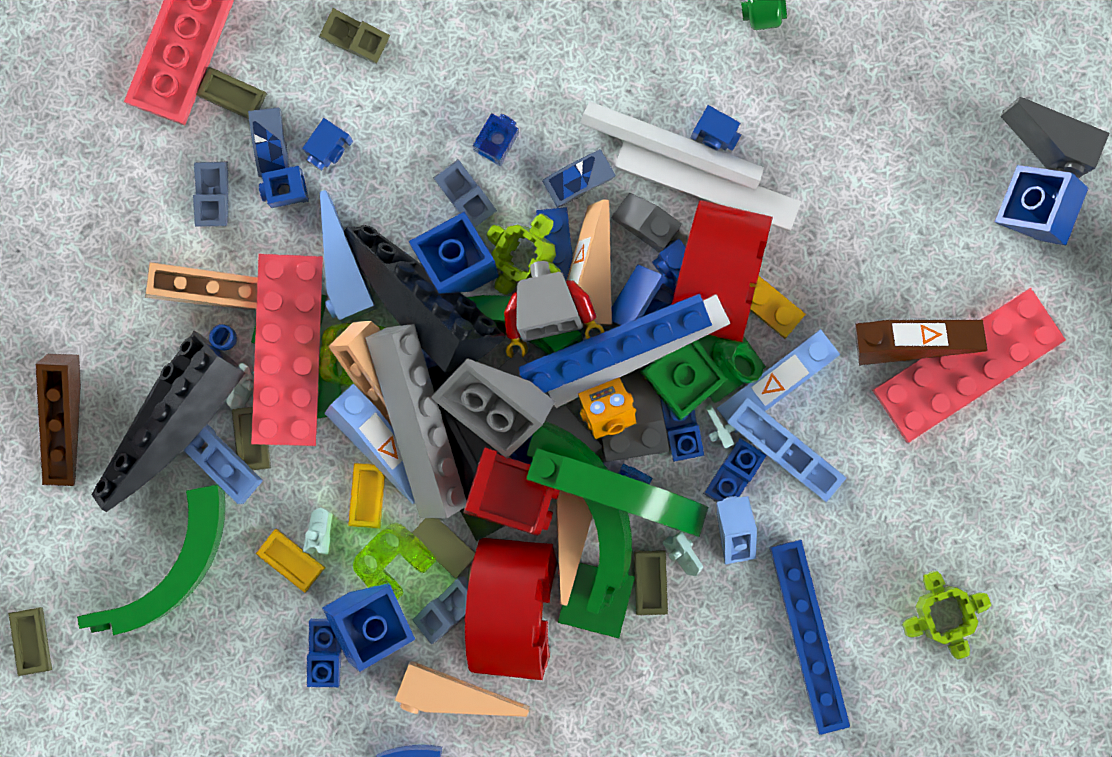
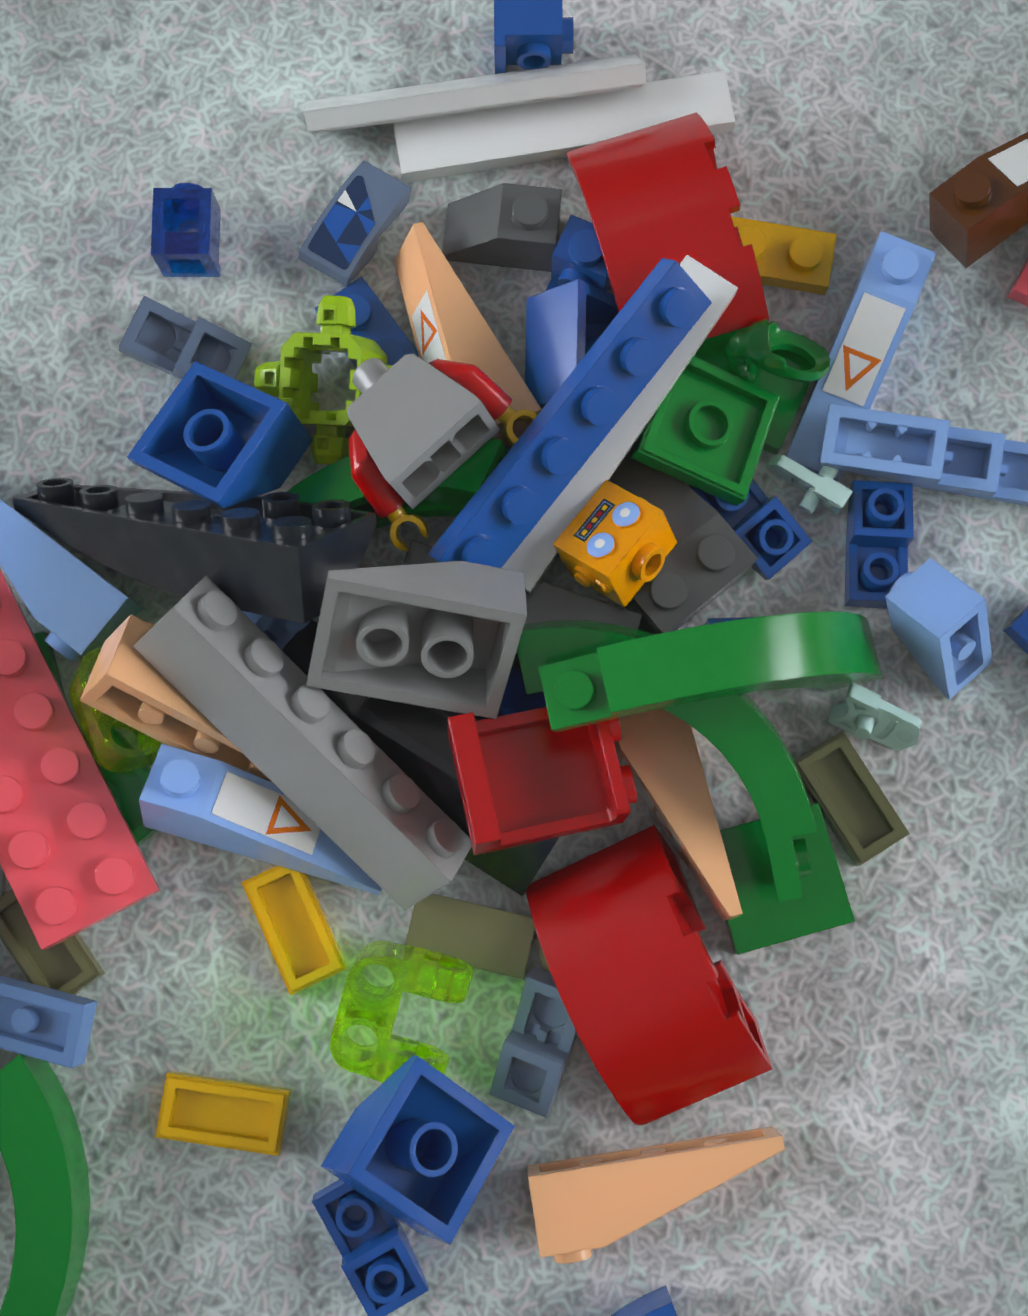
camera: 30 degrees left, 5 degrees down
(318, 532) = (245, 1036): light aqua piece -> none

